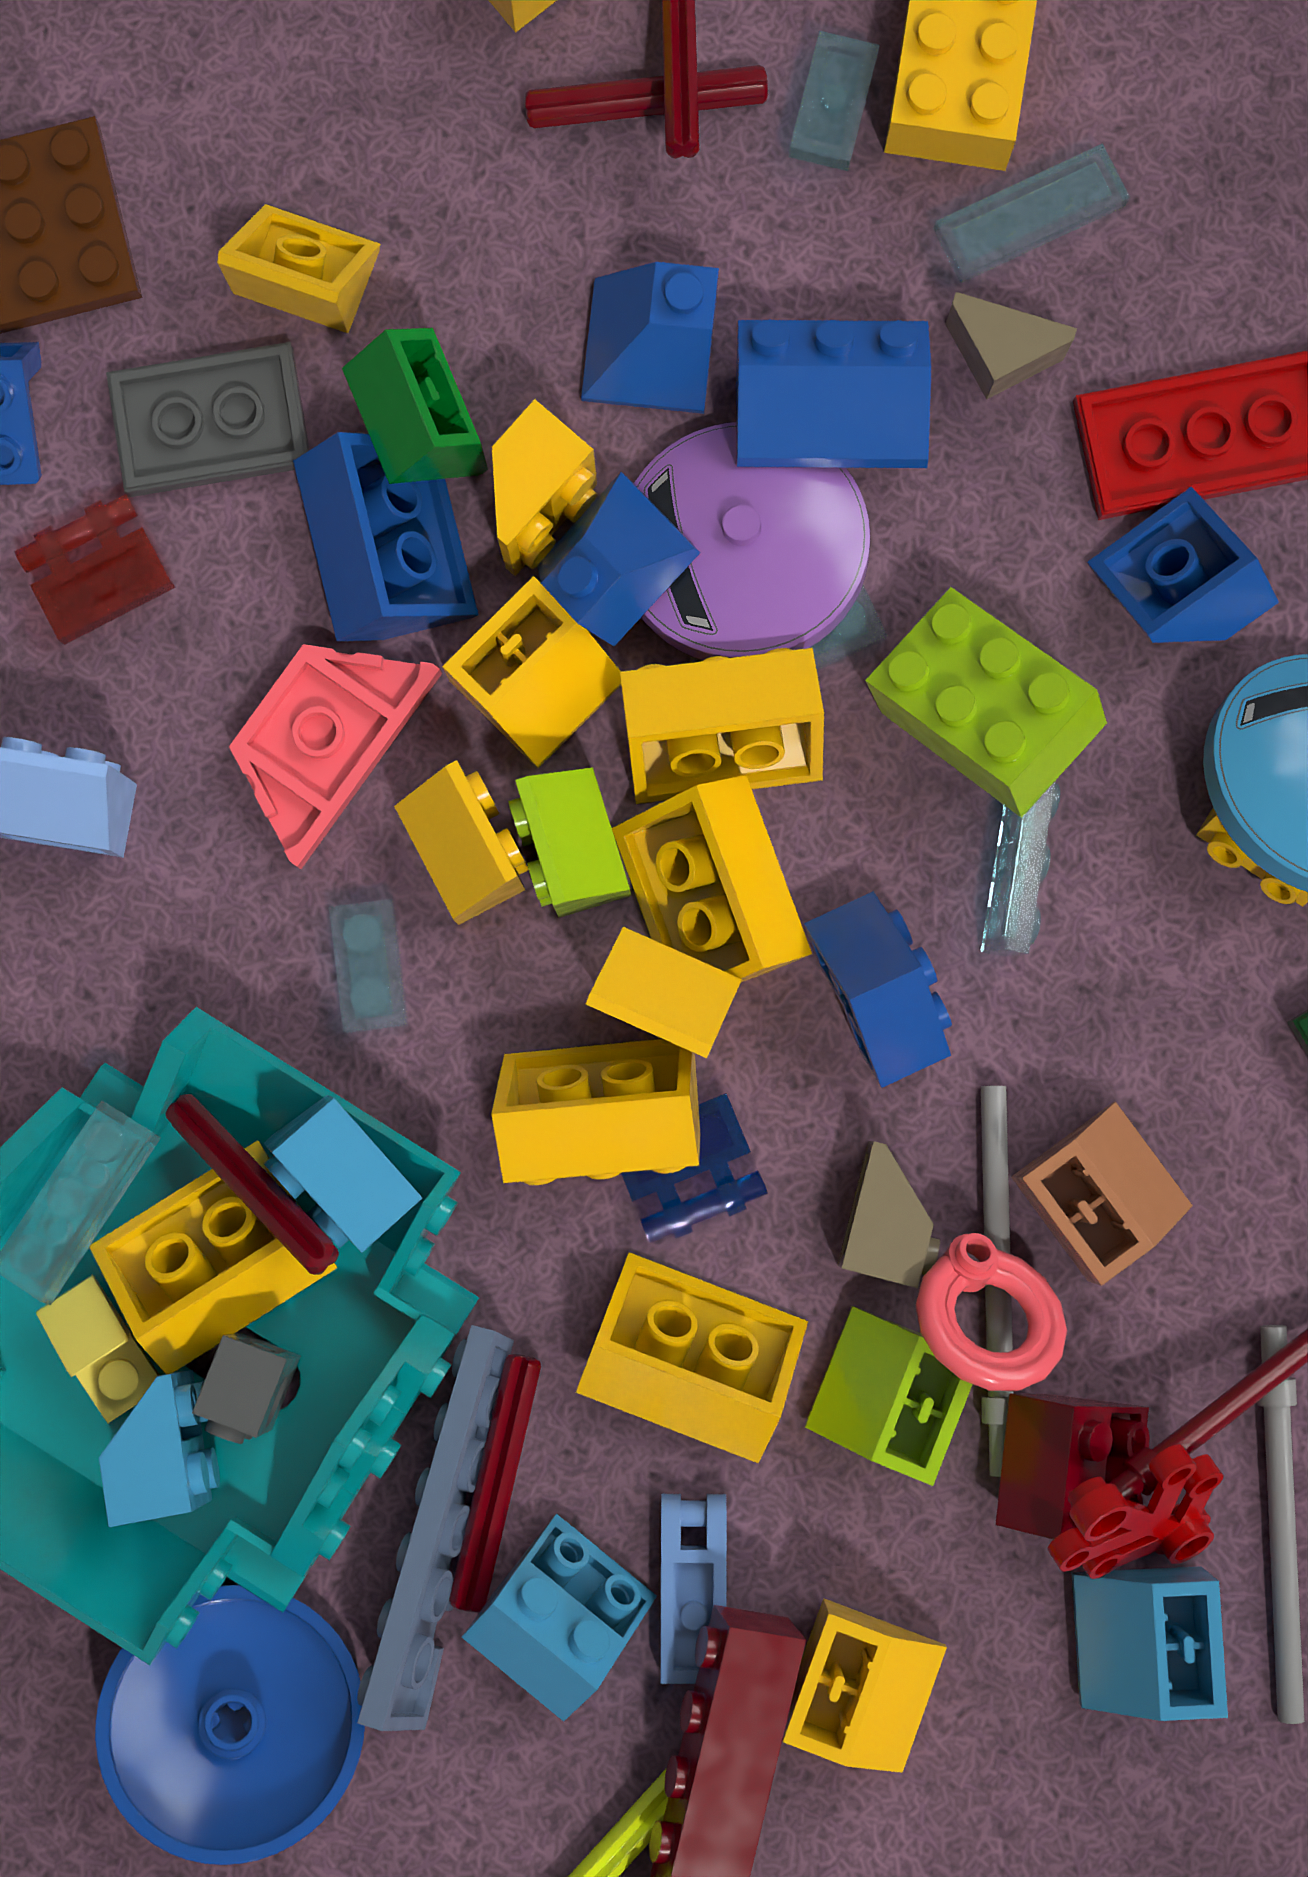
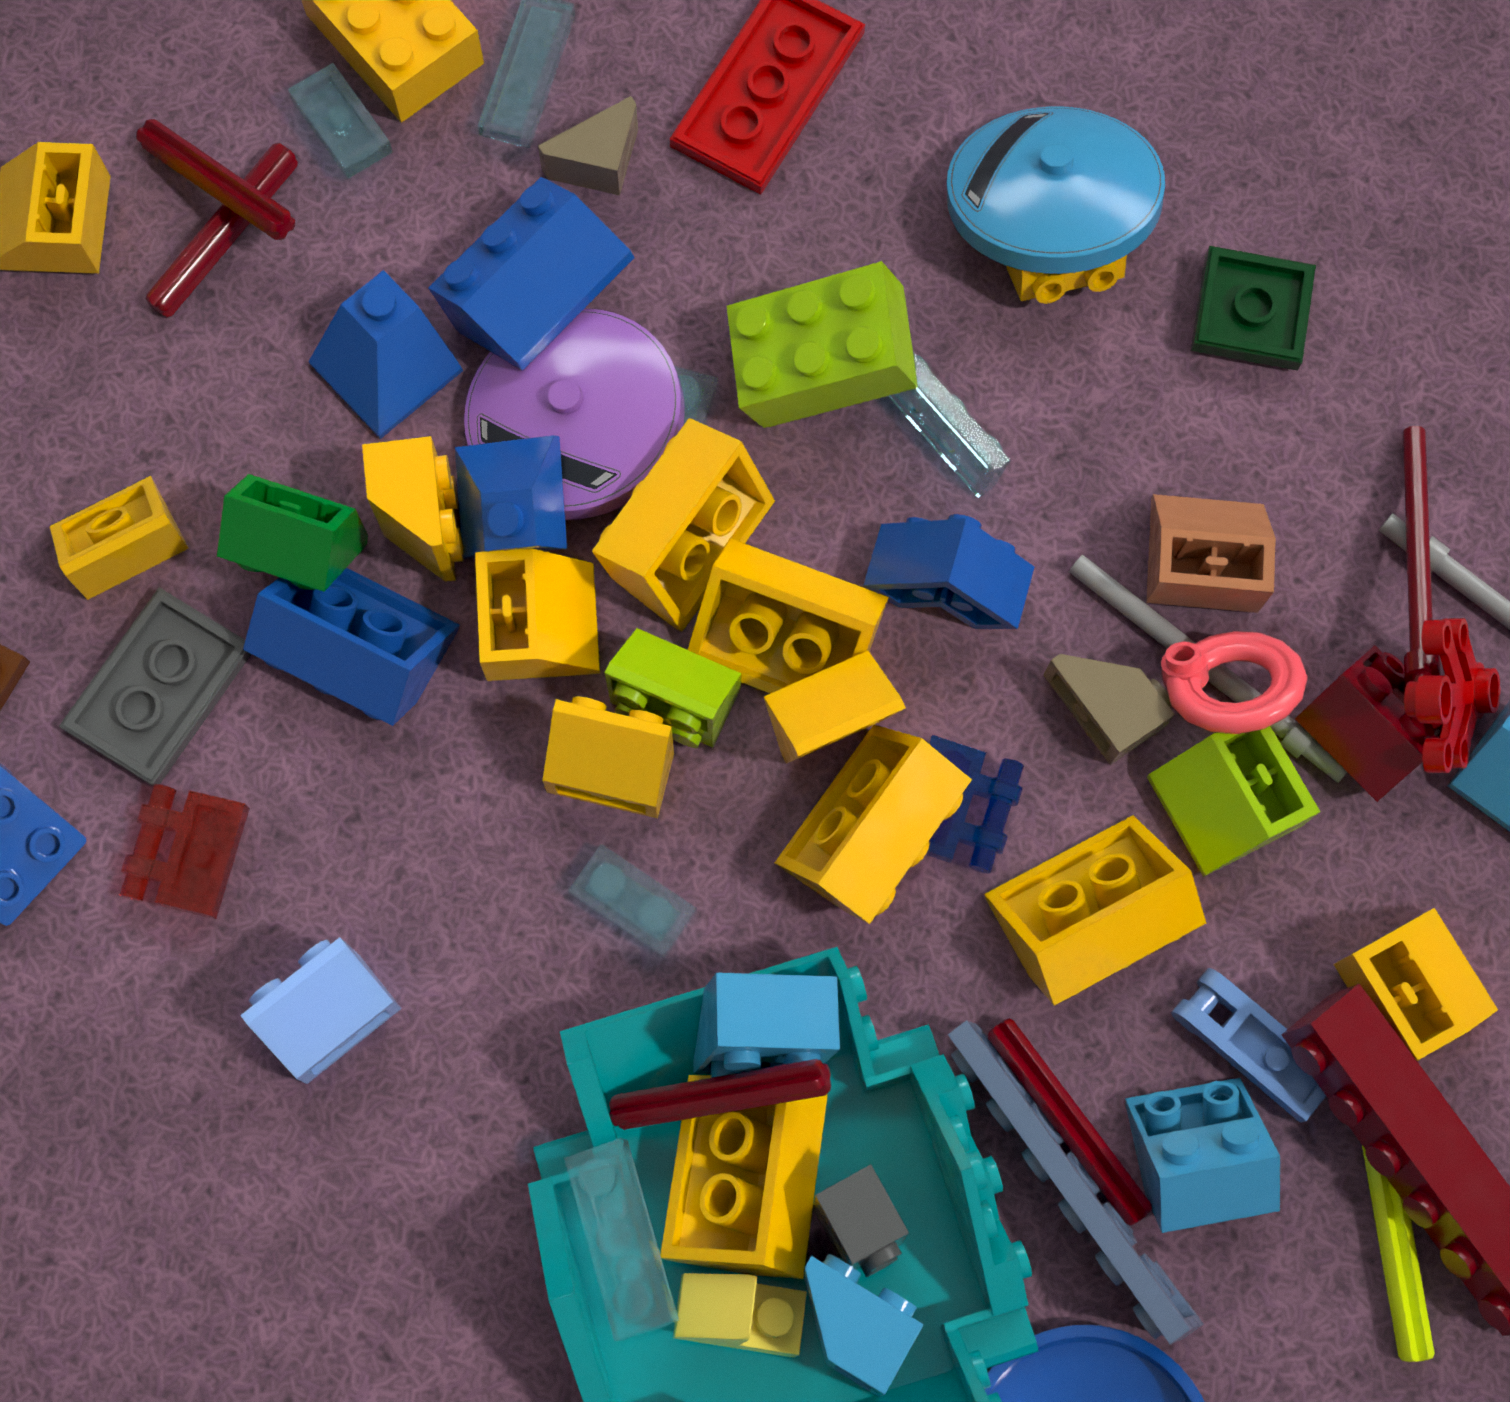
camera: 55 degrees left, 10 degrees down
(324, 736) = (447, 795): coral wing -> none
(1185, 574) = (847, 165): blue slope -> none

